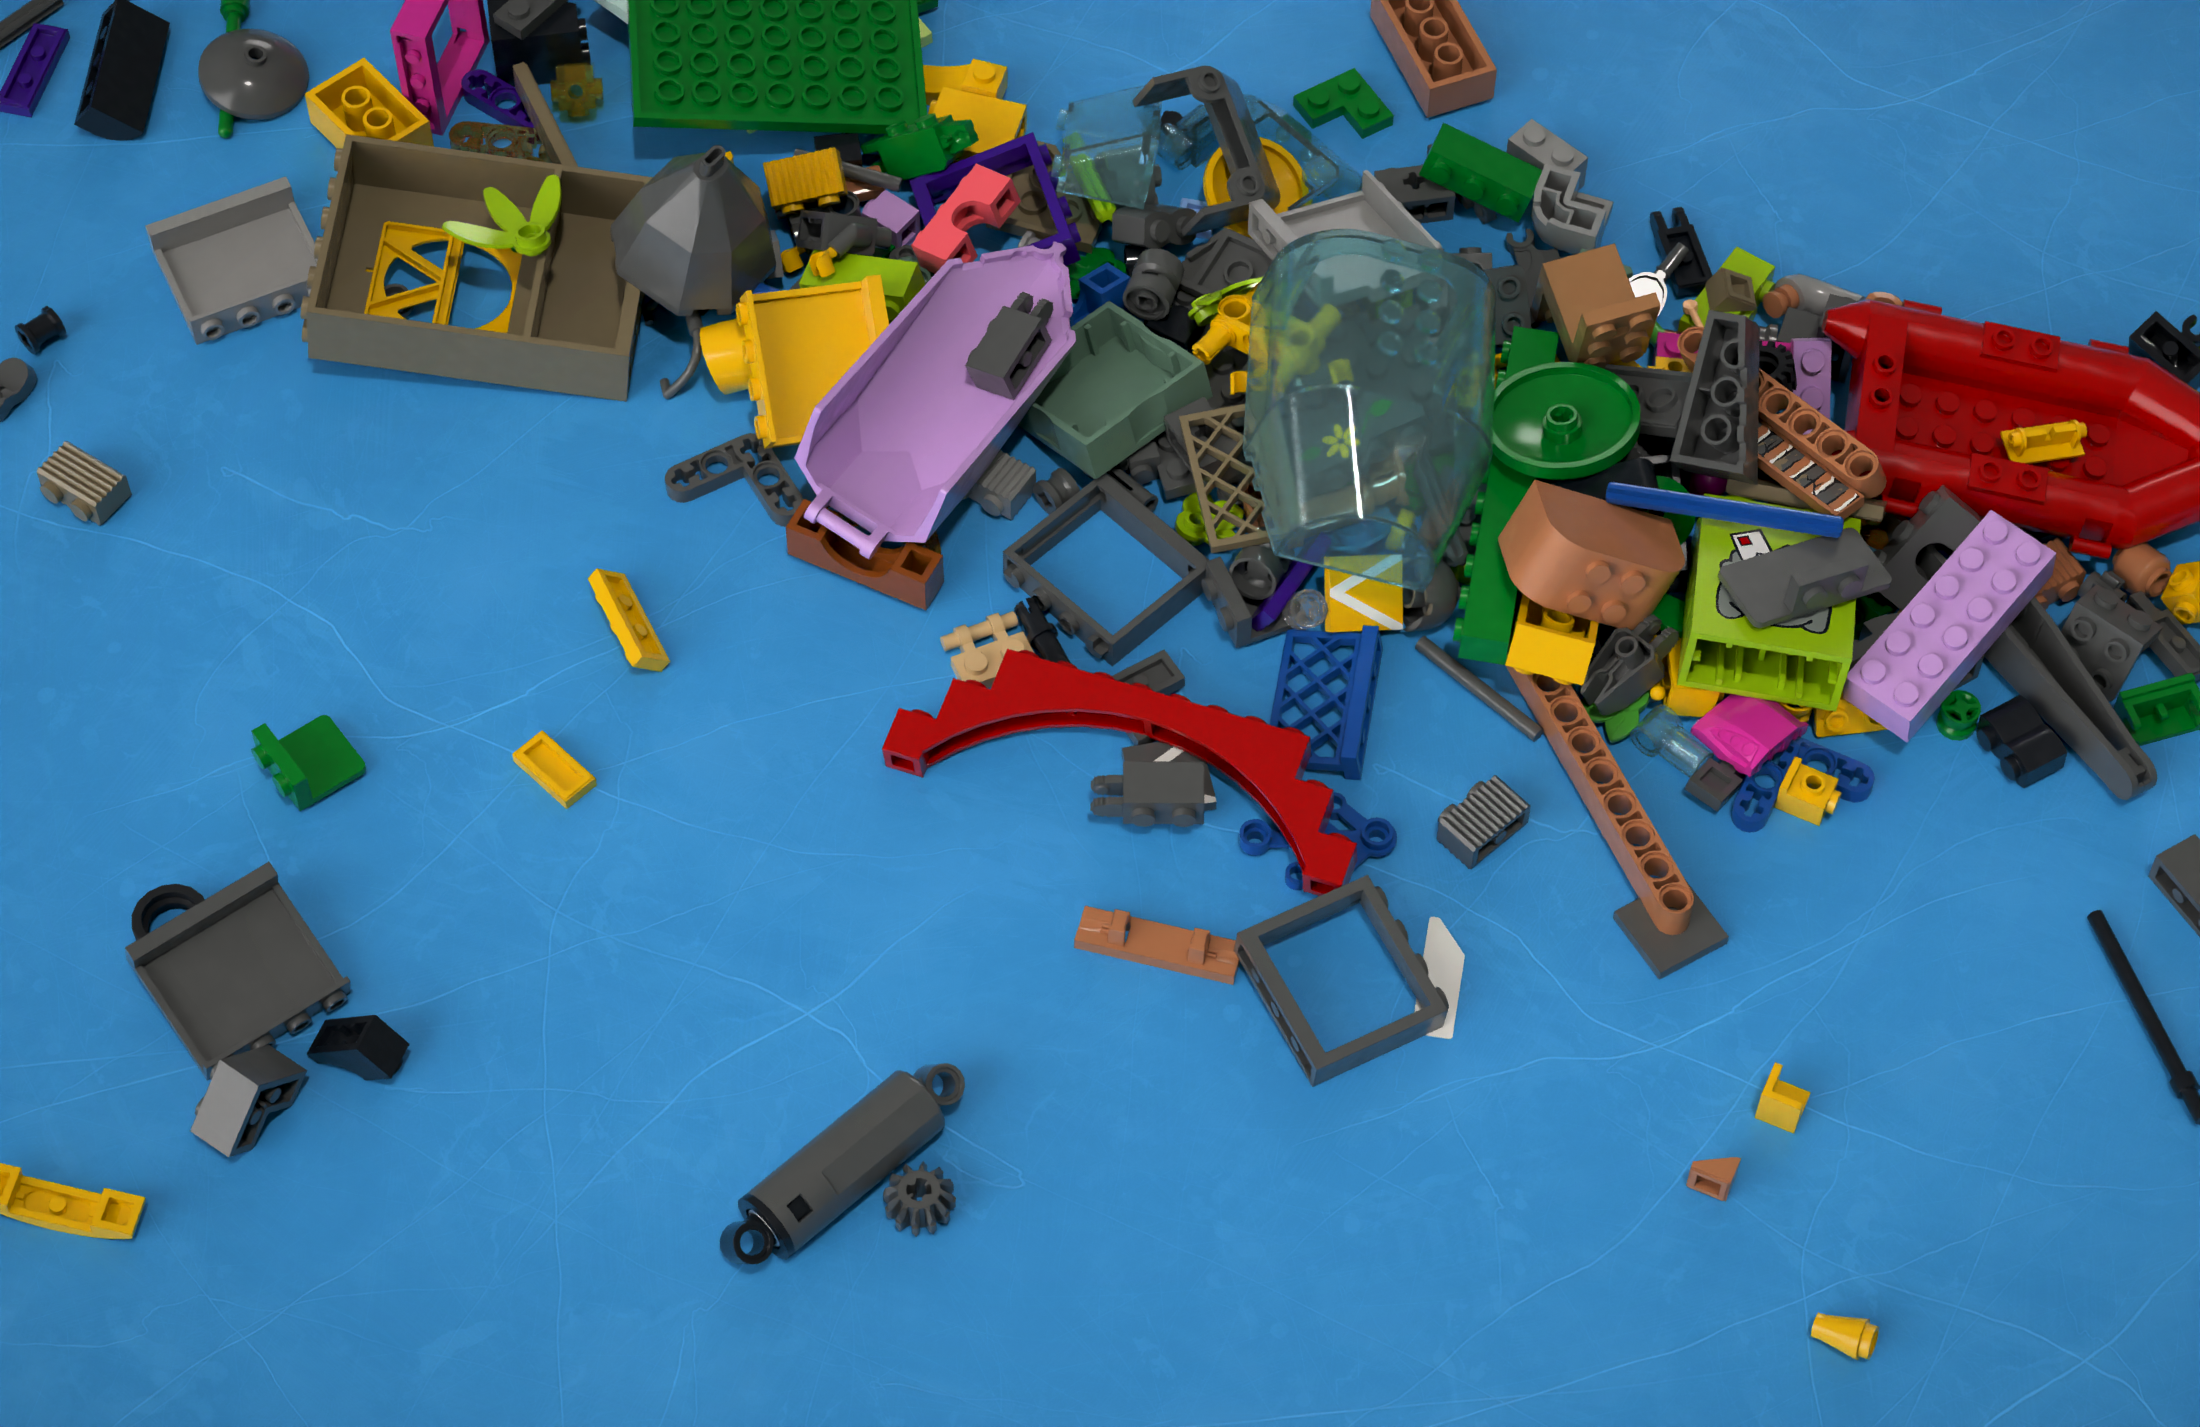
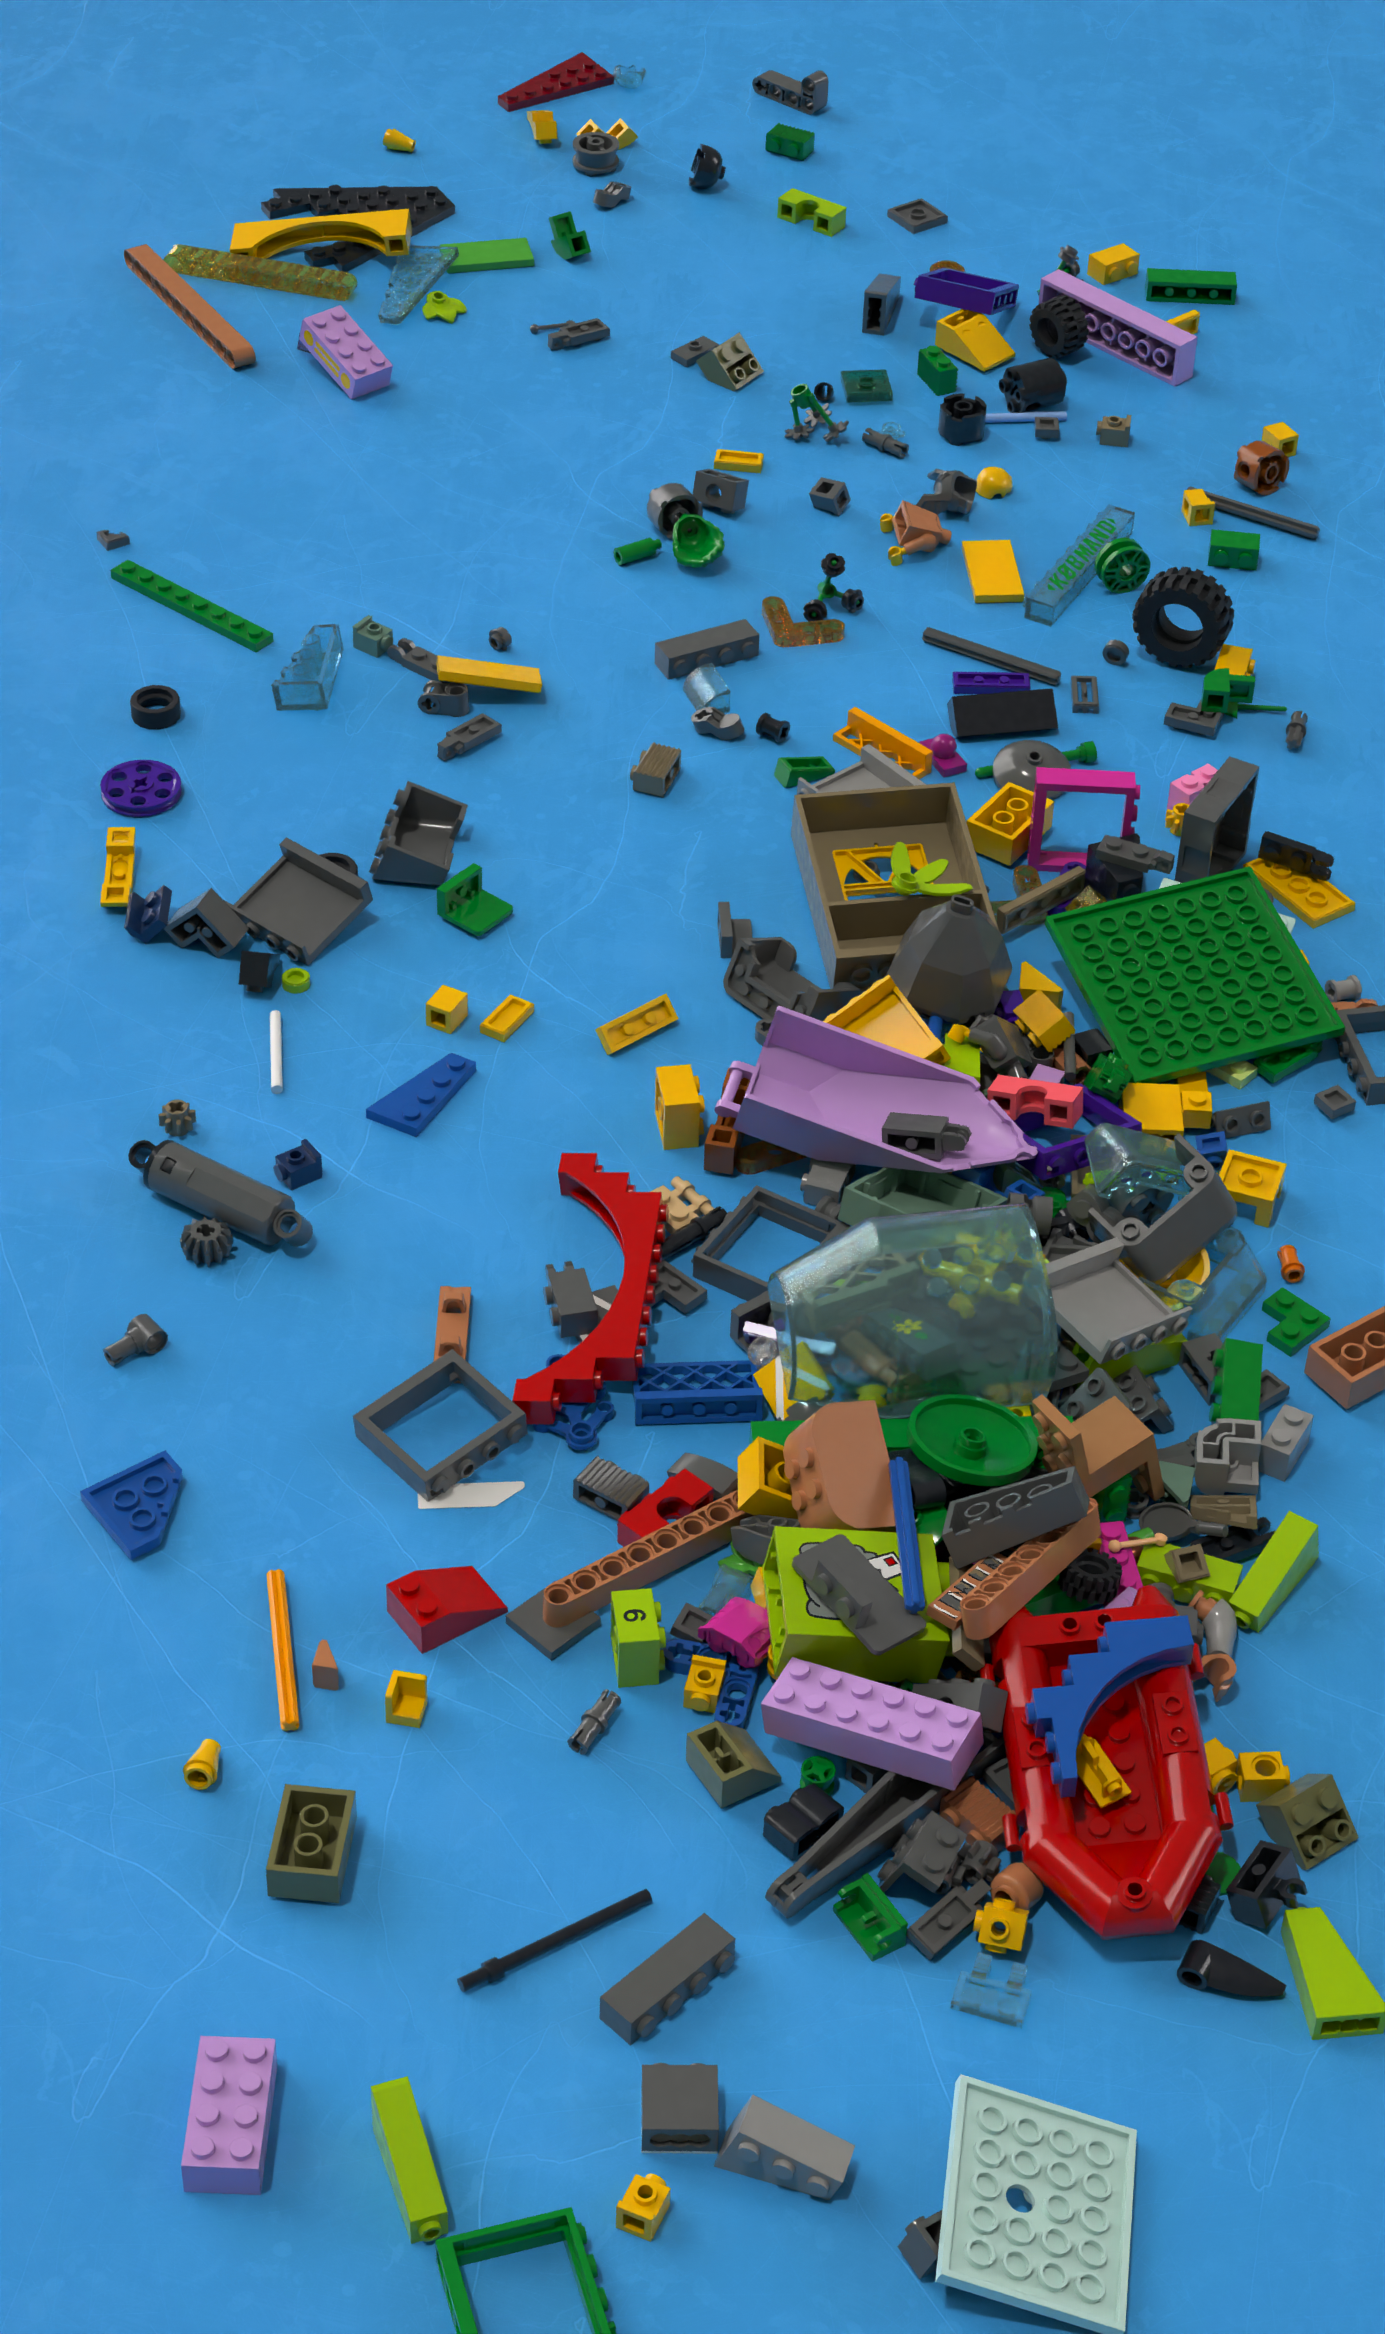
camera: 75 degrees right, 15 degrees down
(126, 212) = (885, 739): none -> light orange fence
(133, 810) = (418, 837): none -> dark grey windscreen
(143, 323) = (809, 768): none -> green slope
(173, 159) = (944, 755): none -> magenta tile
(182, 1171) = (148, 915): none -> dark blue bracket
(389, 1007) = (295, 980): none -> lime tile
(470, 477) = (730, 930): none -> dark grey panel
(525, 832) = (446, 1009): none -> yellow brick
(535, 1059) = (276, 1052): none -> white bar
(622, 444) = (764, 978): none -> dark grey windscreen
(653, 1199) = (177, 1118): none -> dark tan gear
(692, 902) = (423, 1096): none -> blue wing
(795, 1064) = (299, 1165): none -> dark blue brick
(829, 603) = (678, 1106): none -> yellow brick
(998, 42) = (1242, 1119): none -> dark grey hinge
(1051, 92) = (1213, 1148): none -> blue bracket
(1085, 1303) = (141, 1336): none -> dark grey pin
(1124, 63) = (1254, 1182): none -> yellow panel
(1257, 78) = (1291, 1269): none -> orange pin
(1392, 1351) = (136, 1503): none -> blue plate
(1474, 721) = (713, 1473): none -> dark grey slope
(1555, 799) = (673, 1500): none -> red arch
(1633, 1035) = (441, 1604): none -> red slope
(1645, 235) = (1225, 1509): none -> dark tan wing
(1668, 1222) = (282, 1650): none -> light orange axle
(1738, 216) = (1276, 1571): none -> lime slope
(1745, 838) = (636, 1637): none -> lime brick
(1841, 913) = (594, 1721): none -> dark grey pin
(1934, 791) = (728, 1762): none -> olive slope
(1977, 398) = (1124, 1654): none -> blue arch
(2000, 1230) = (311, 1843): none -> olive brick
(2019, 310) = (1260, 1775): none -> yellow brick
(2078, 297) = (1308, 1819): none -> olive slope

